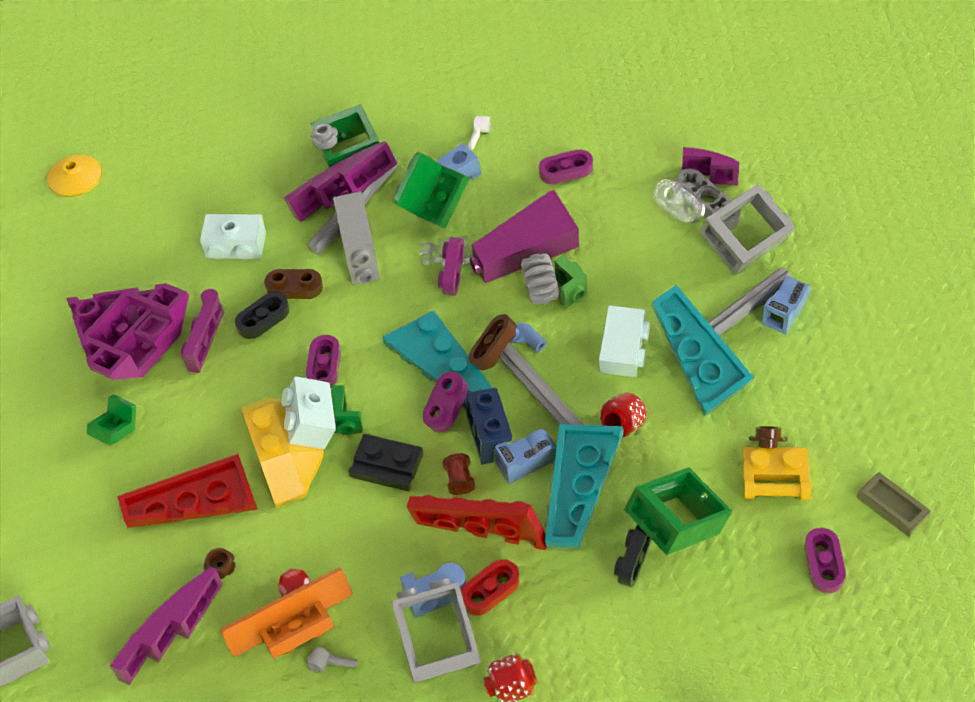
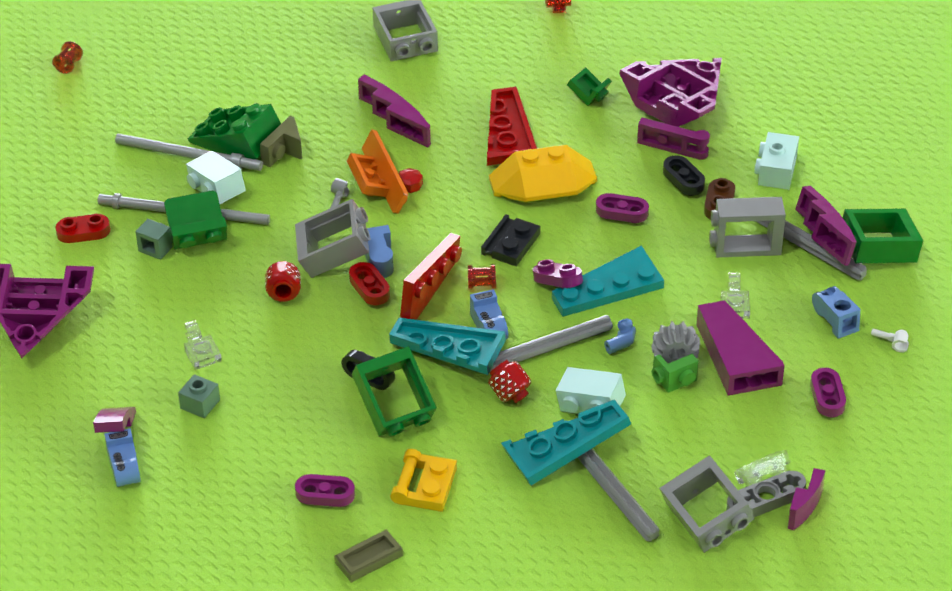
camera: 95 degrees right, 10 degrees down
(74, 175) = (882, 75): yellow dish -> none
(218, 556) = (441, 140): reddish brown plate -> none
(308, 412) = (556, 180): light aqua brick -> none
(324, 136) = (873, 206): light grey plate -> none
(345, 421) = (564, 211): green bracket -> none
(430, 190) = (800, 274): green bracket -> none
(453, 254) = (706, 290): magenta plate -> none
(487, 422) = (523, 290): dark blue bracket -> none
(492, 342) = (602, 303): reddish brown plate -> none
(768, 436) = (460, 476): reddish brown plate -> none
(786, 304) = (610, 522): medium blue leg -> none

